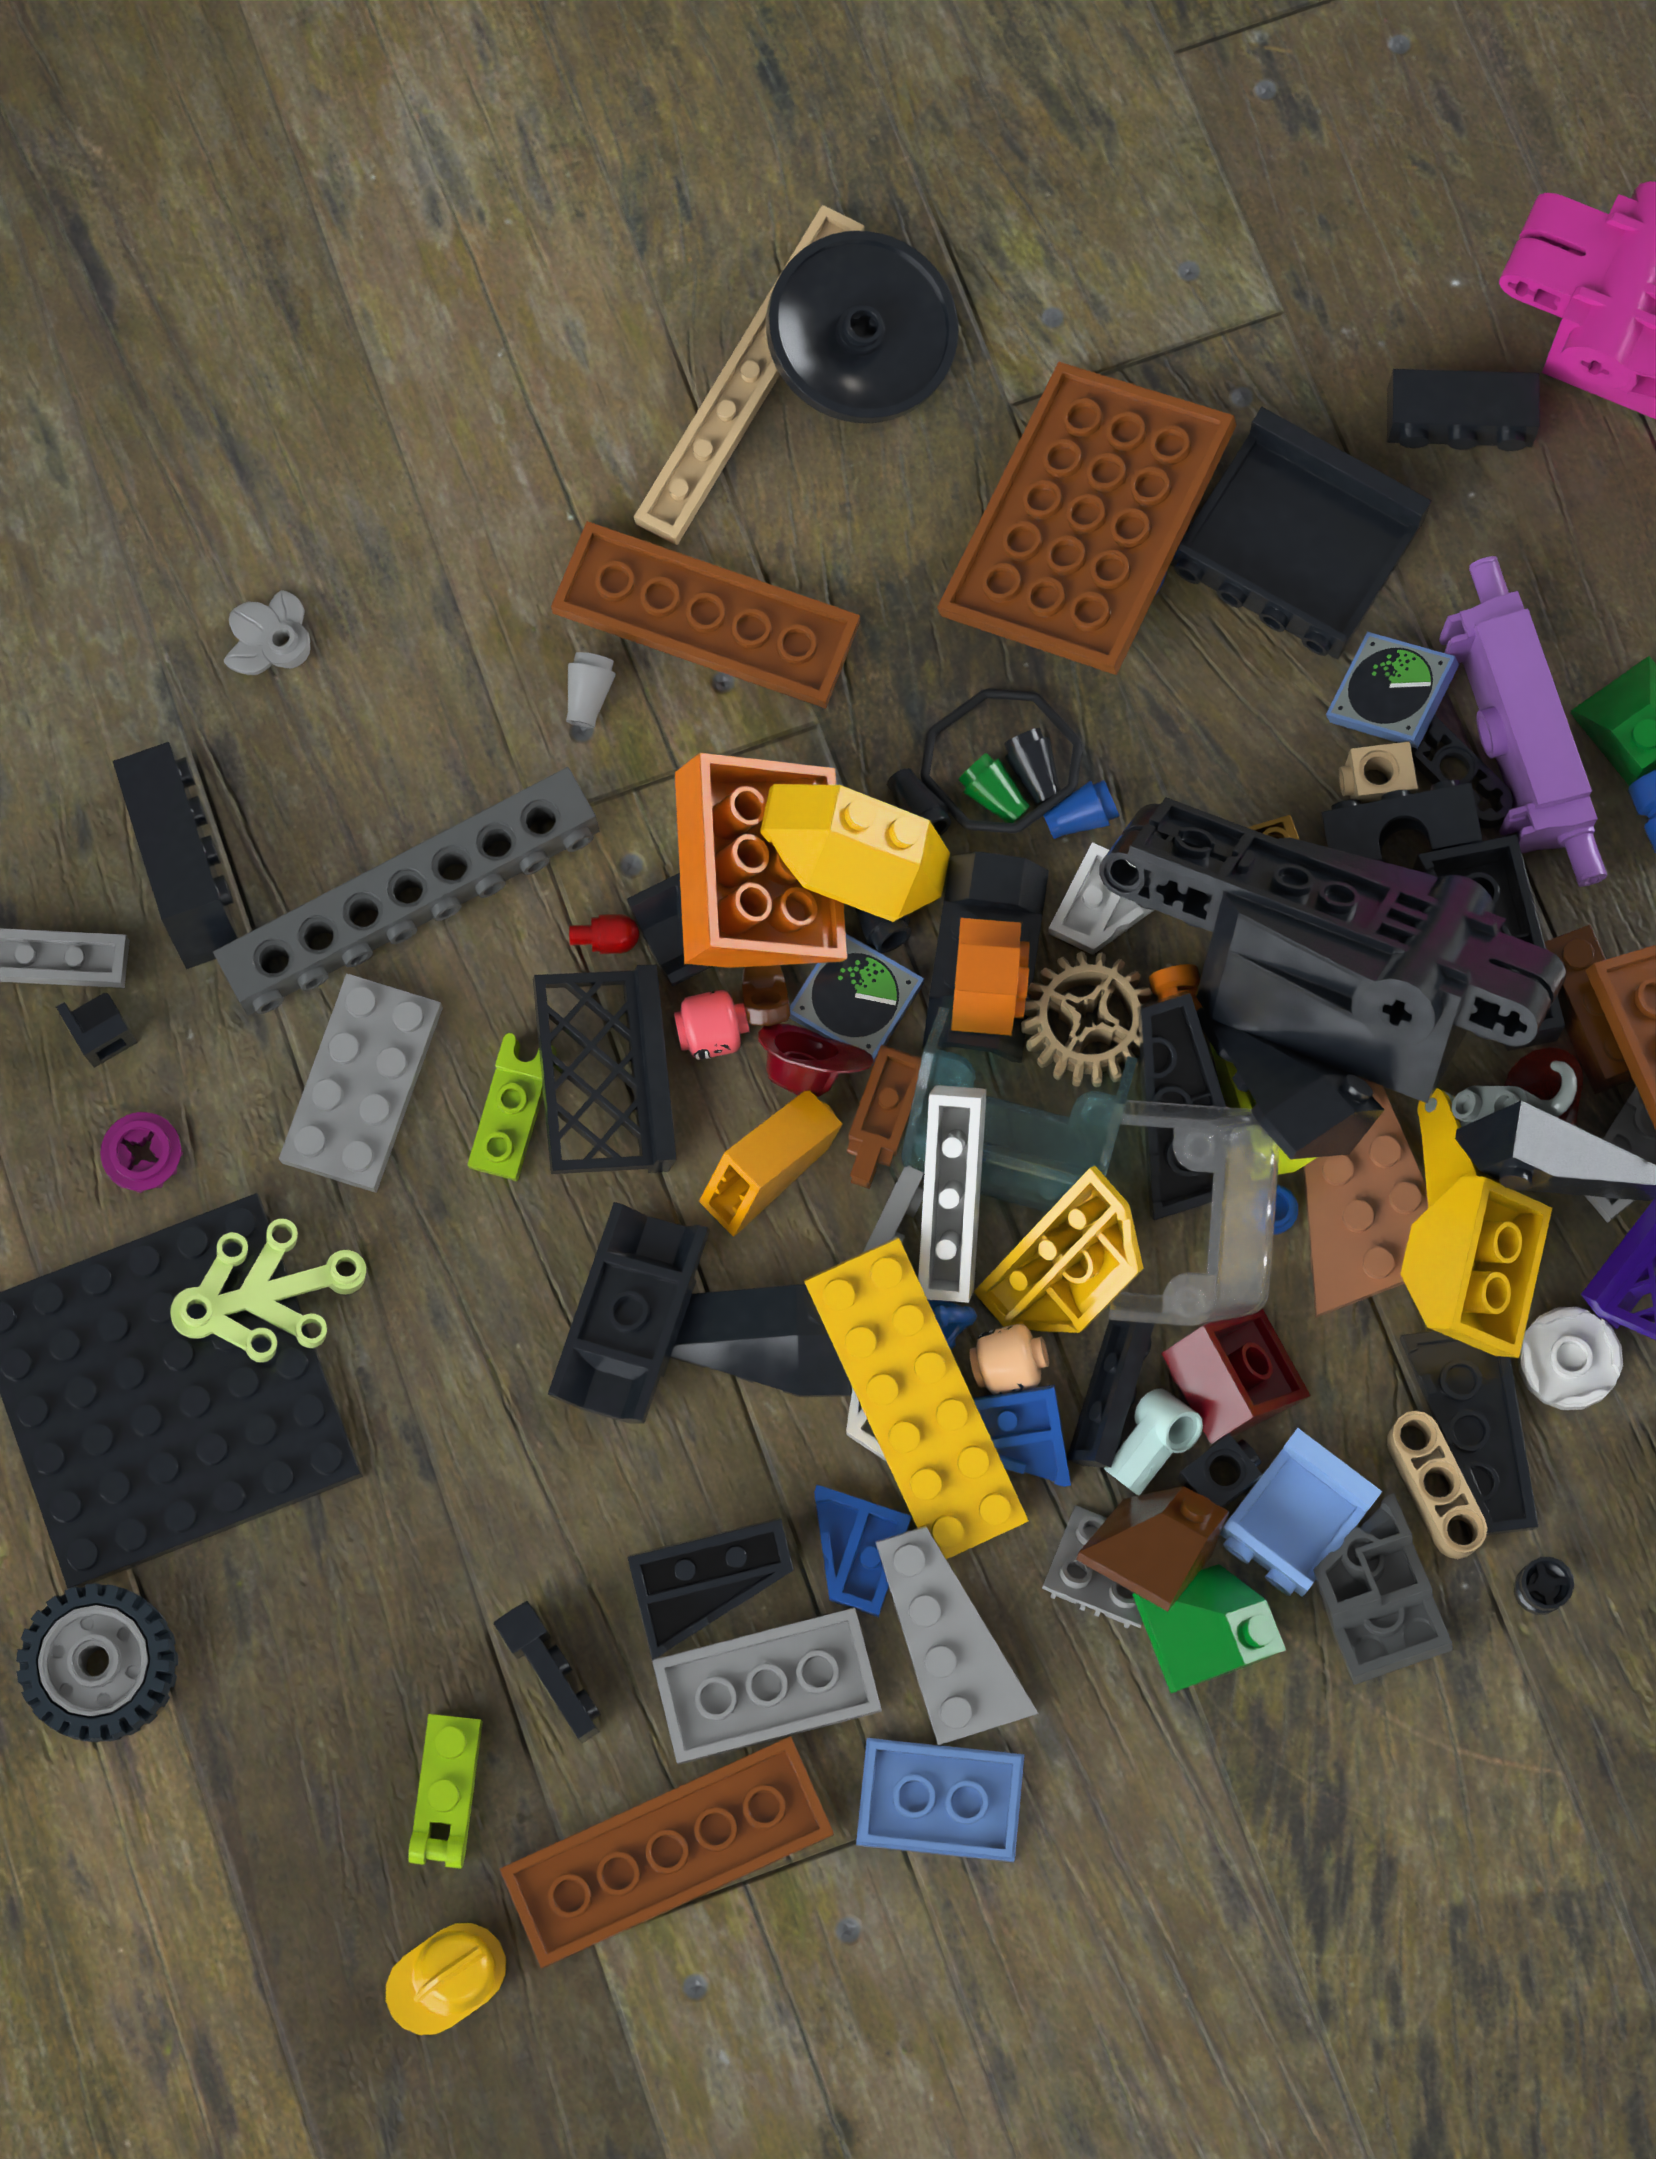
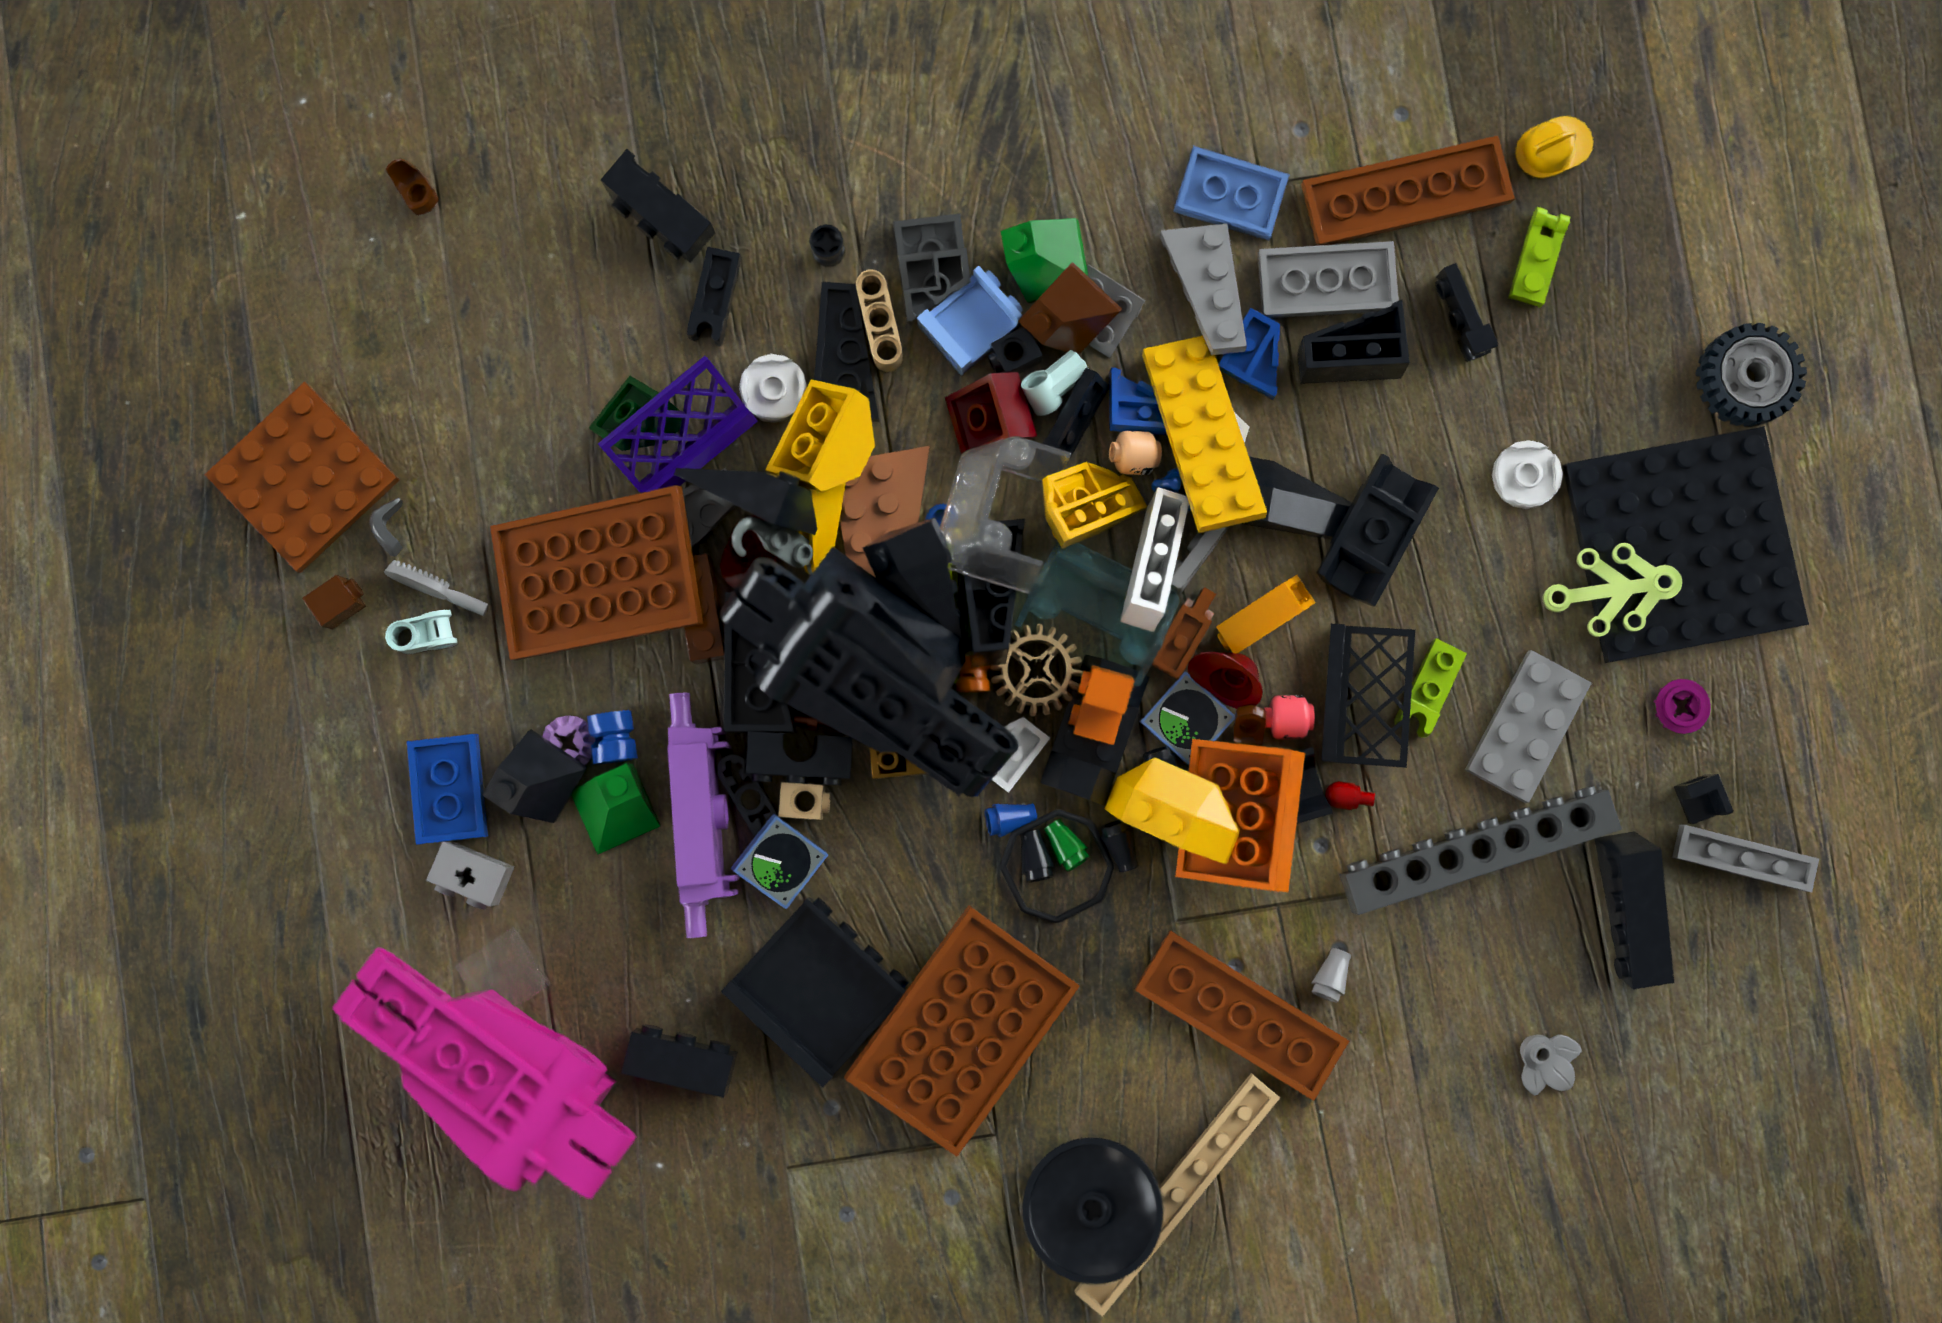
camera: 175 degrees left, 10 degrees up
(415, 1449) = (1527, 474): none -> white tile

